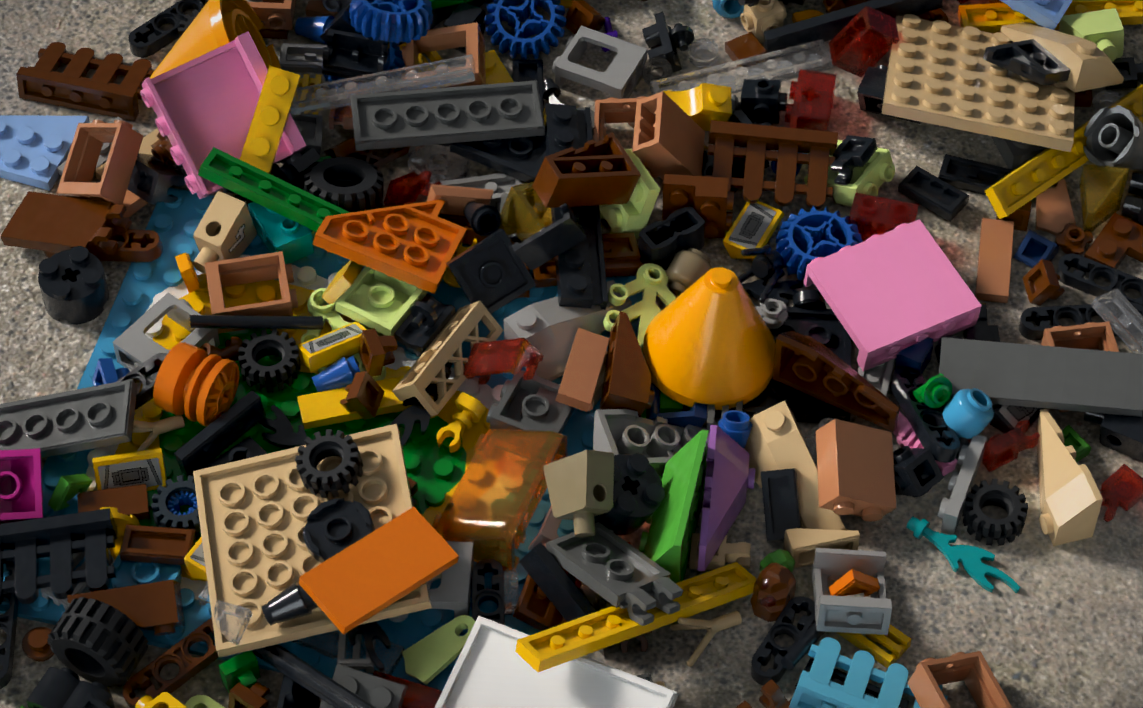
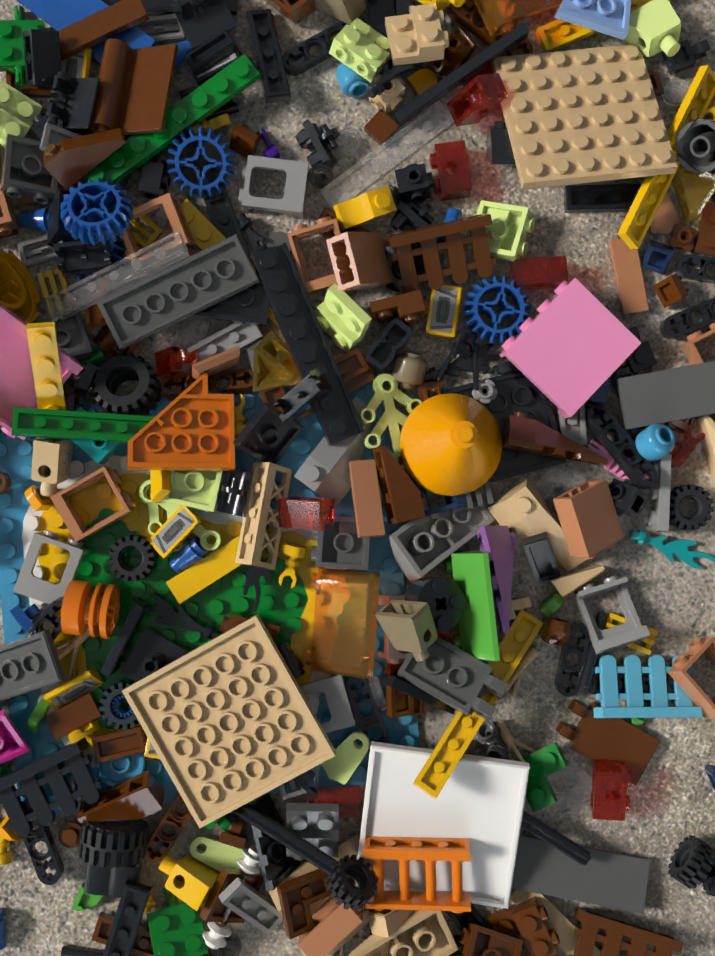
camera: 15 degrees left, 35 degrees up
(229, 352) = (97, 565): reddish brown arm -> none
(231, 620) = (200, 808): clear tile -> none
(256, 322) = (110, 537): black bar -> none
(289, 605) = (240, 789): black cone -> none
(326, 447) = (205, 673): black tyre -> none
(335, 527) = (249, 719): black tile -> none
(363, 396) = (215, 574): reddish brown tile -> none
(376, 351) = (210, 537): reddish brown tile -> none
(378, 570) = (292, 752): orange tile -> none
(482, 218) = (241, 379): black cone -> none
(587, 176) = (314, 329): reddish brown wedge -> none
(736, 425) = (492, 512): blue cone -> none
(852, 153) = (503, 224): black plate -> none
(854, 583) = (611, 609): orange tile -> none
(933, 193) = (567, 228): black plate -> none
(934, 392) = (627, 432): green plate -> none
(1028, 60) = (619, 87): black wing -> none
(1087, 63) = (641, 67): tan wedge -> none

